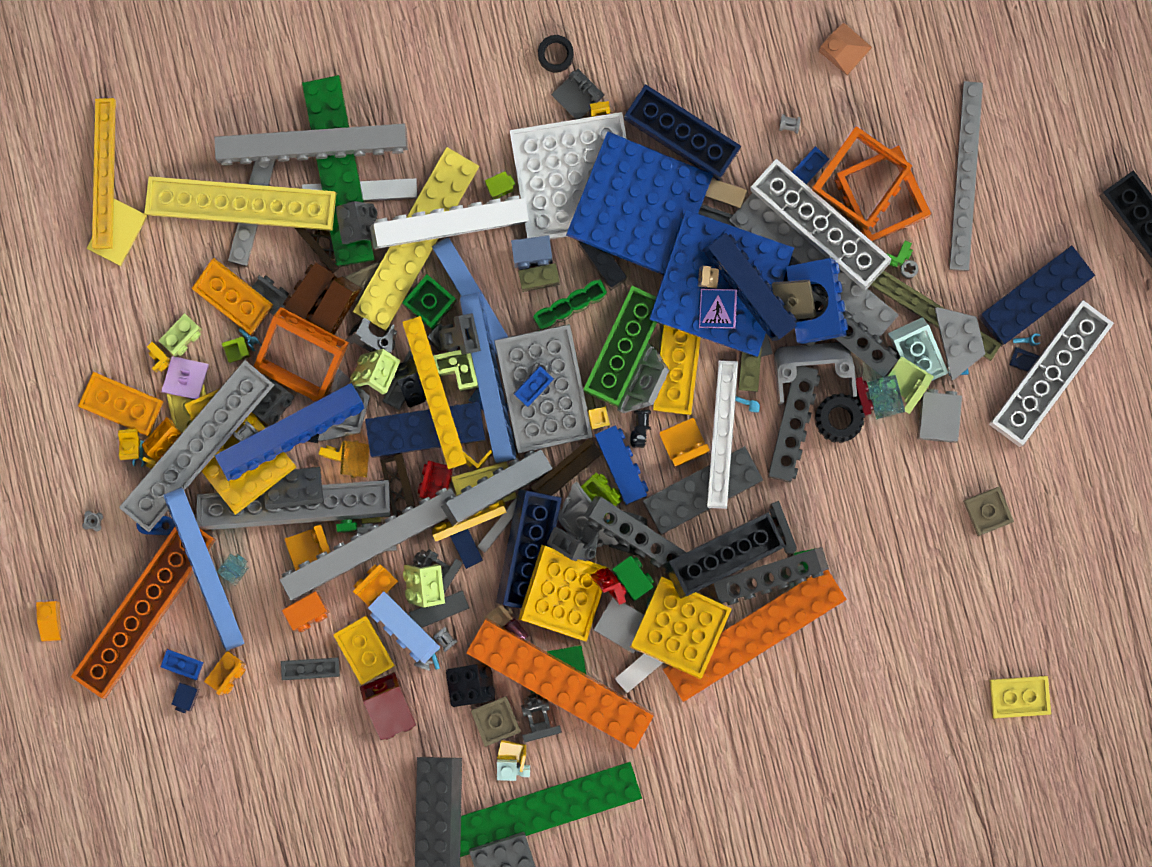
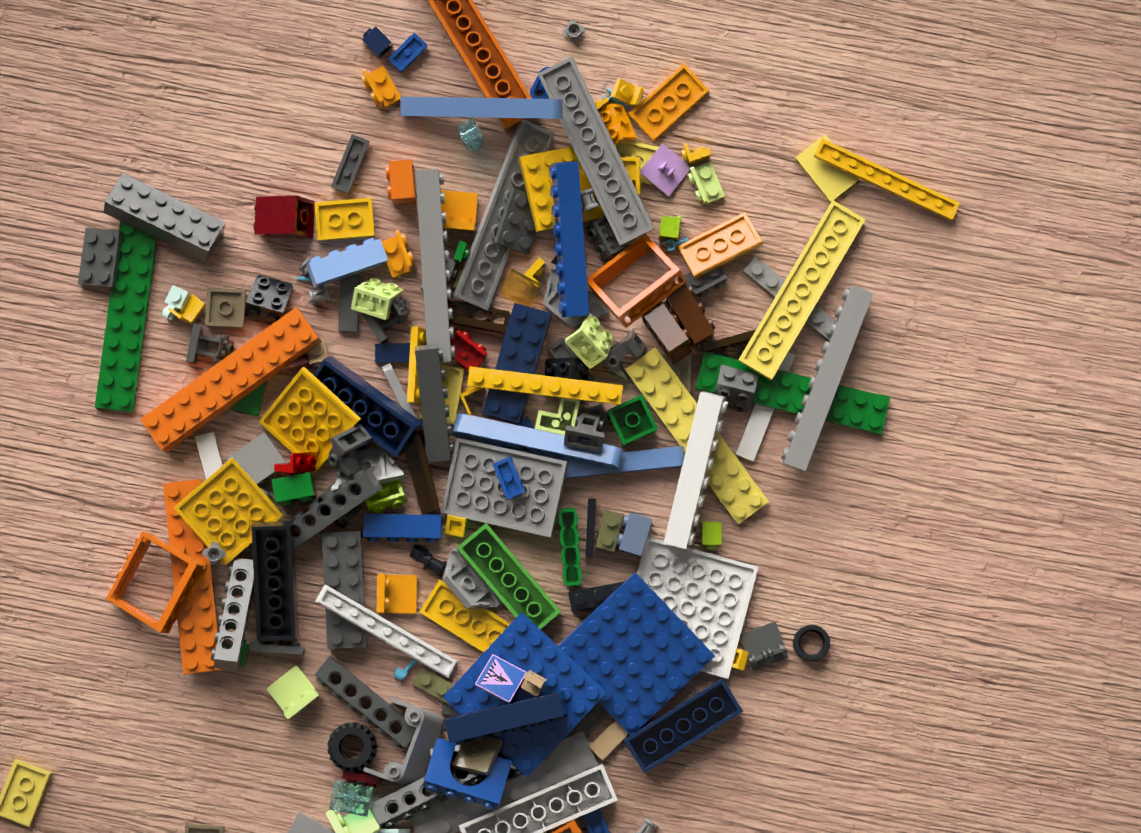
camera: 115 degrees right, 0 degrees up
(543, 296) = (590, 527): none -> black tile
(731, 620) = (214, 548): none -> light grey plate
(777, 634) = (179, 596): none -> orange window
(815, 494) = (293, 692): none -> yellowish green bracket

